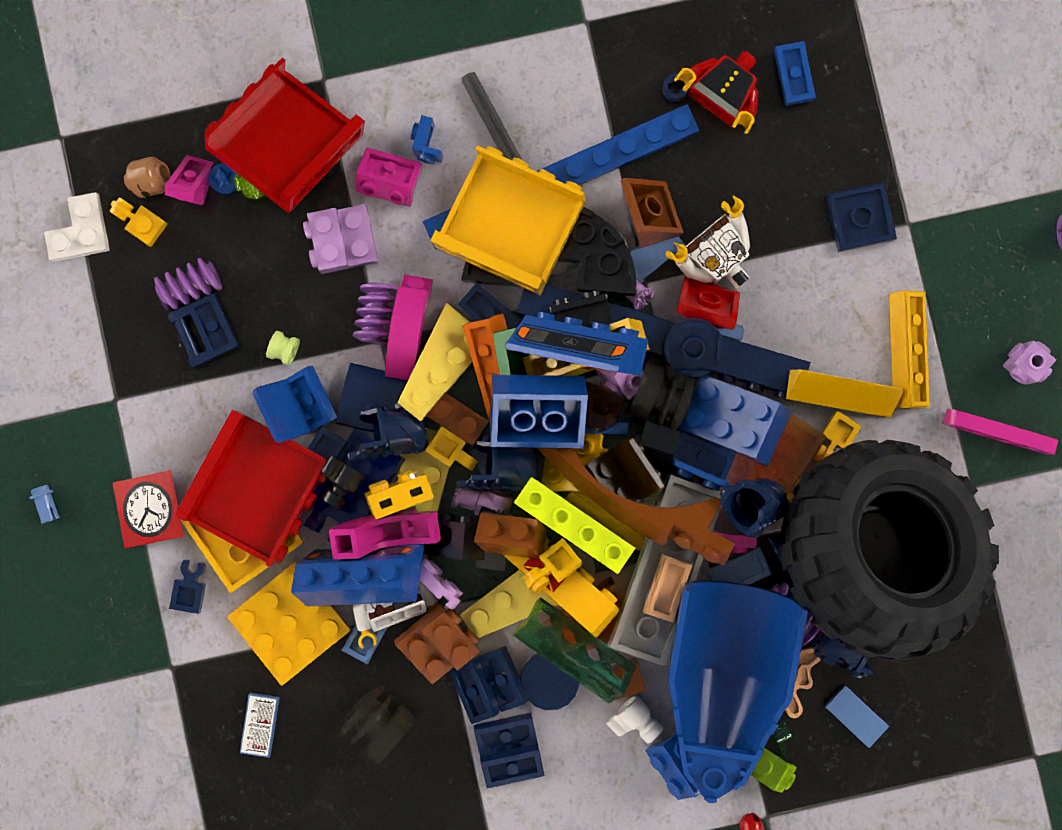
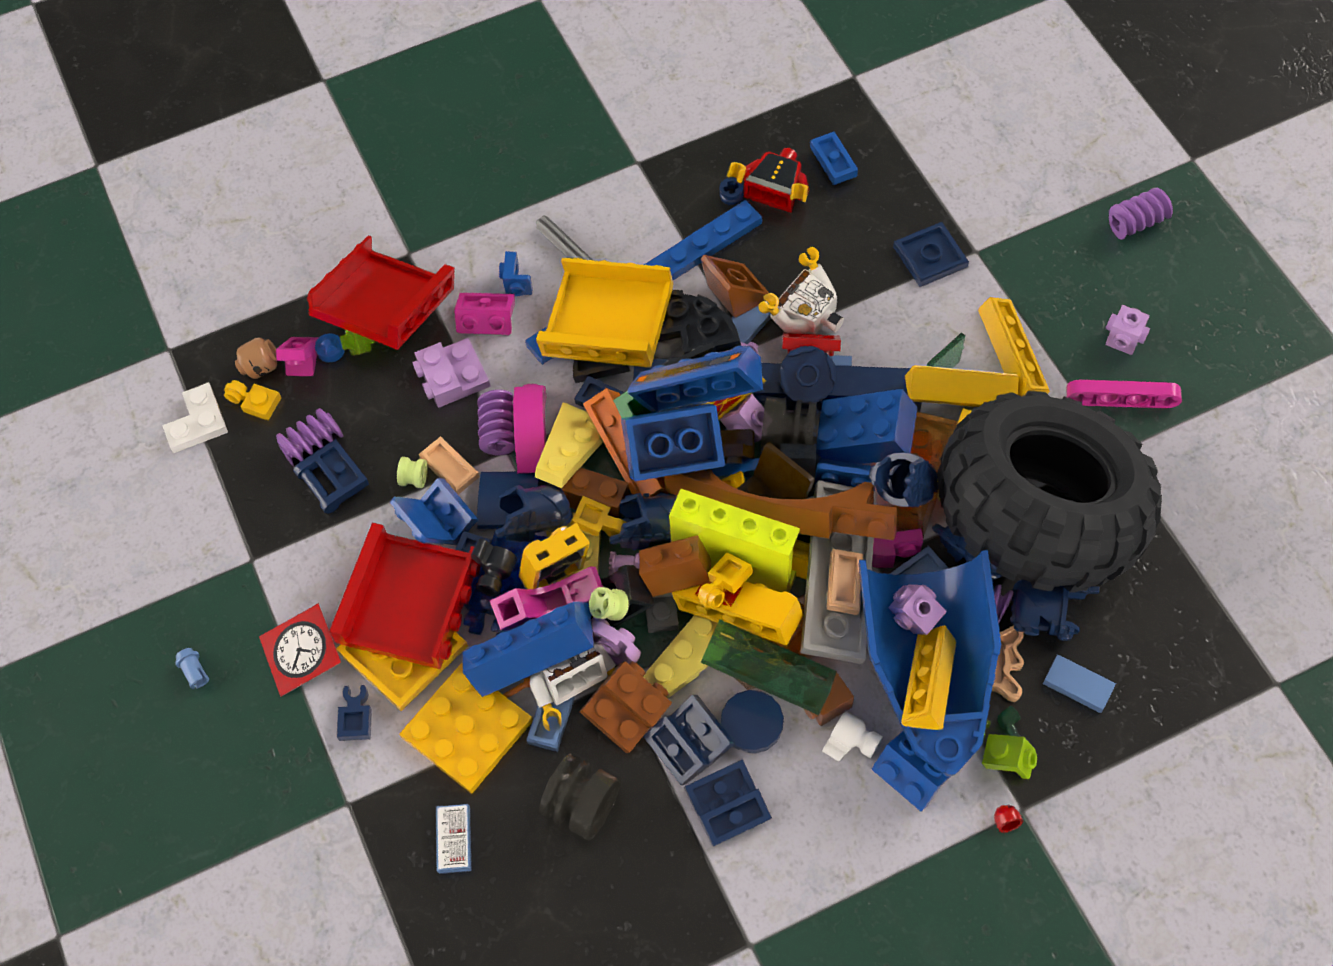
camera: 10 degrees left, 25 degrees down
(321, 344) = (449, 465): none -> light nougat tile
(440, 557) = (608, 604): none -> yellowish green wheel
(717, 706) = (929, 680): none -> yellow slope
(727, 629) = (916, 609): none -> lavender brick
(824, 363) = (950, 354): none -> clear green piece

